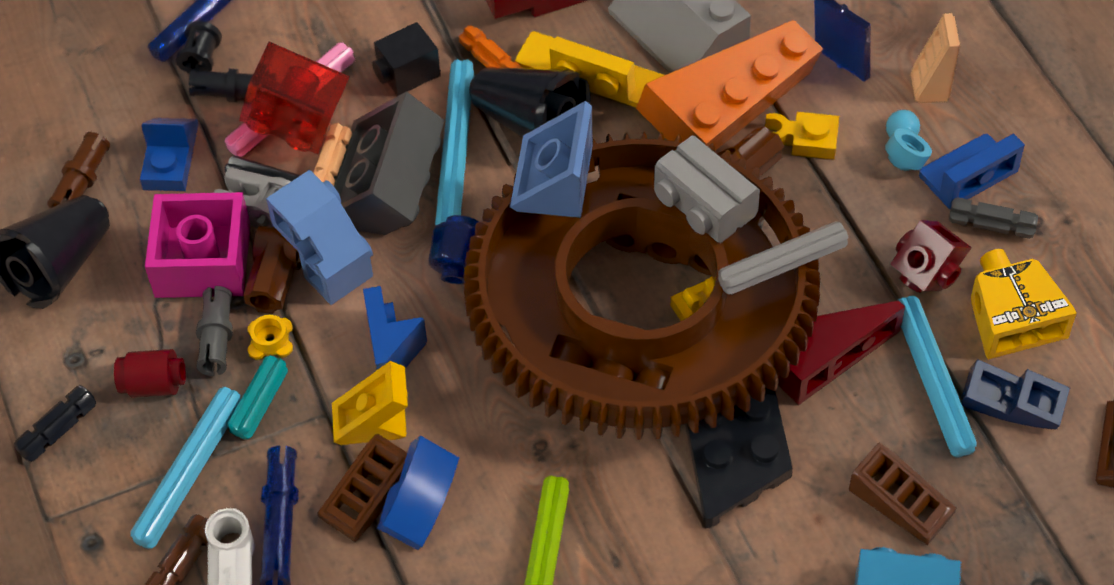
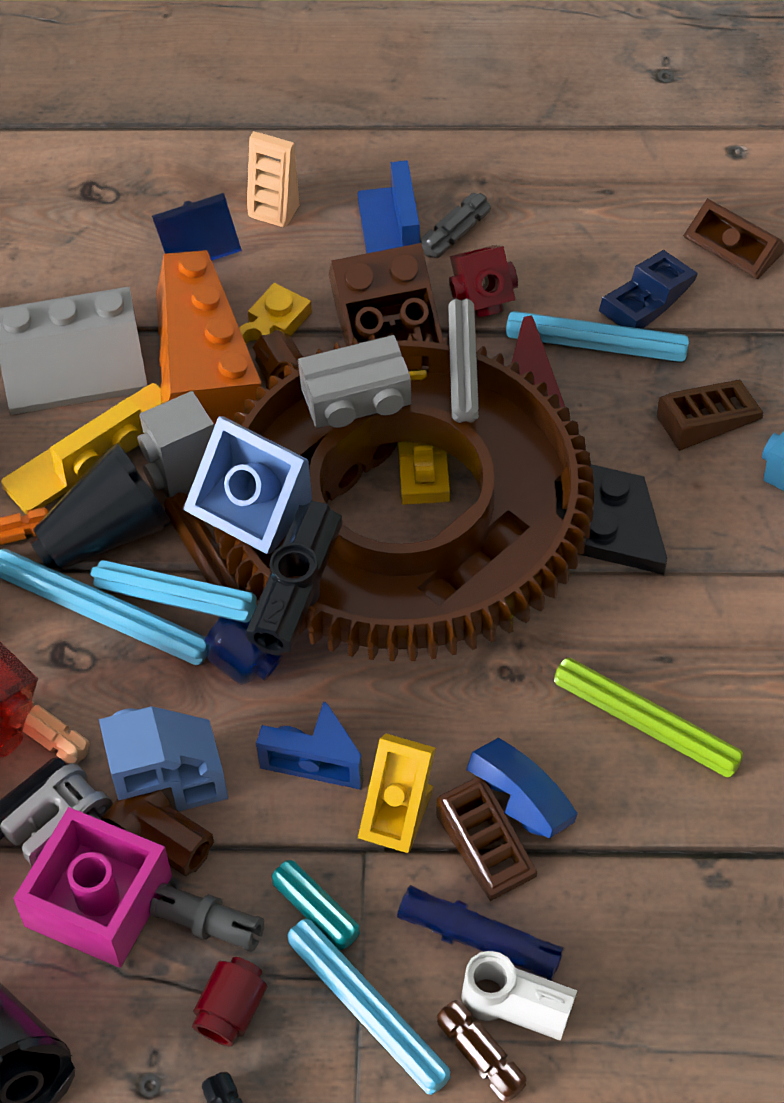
camera: 65 degrees left, 0 degrees up
(267, 327) = (245, 852): yellow plate -> none
(388, 164) = (92, 668): dark grey slope -> none
(477, 178) = (174, 590): none -> medium azure axle
(486, 229) = (288, 599): none -> black piece
(615, 107) = (174, 443): none -> light grey brick
(866, 197) = (385, 296): none -> reddish brown slope
(905, 146) = (314, 245): medium azure plate -> none
(1018, 306) = (560, 246): yellow torso -> none

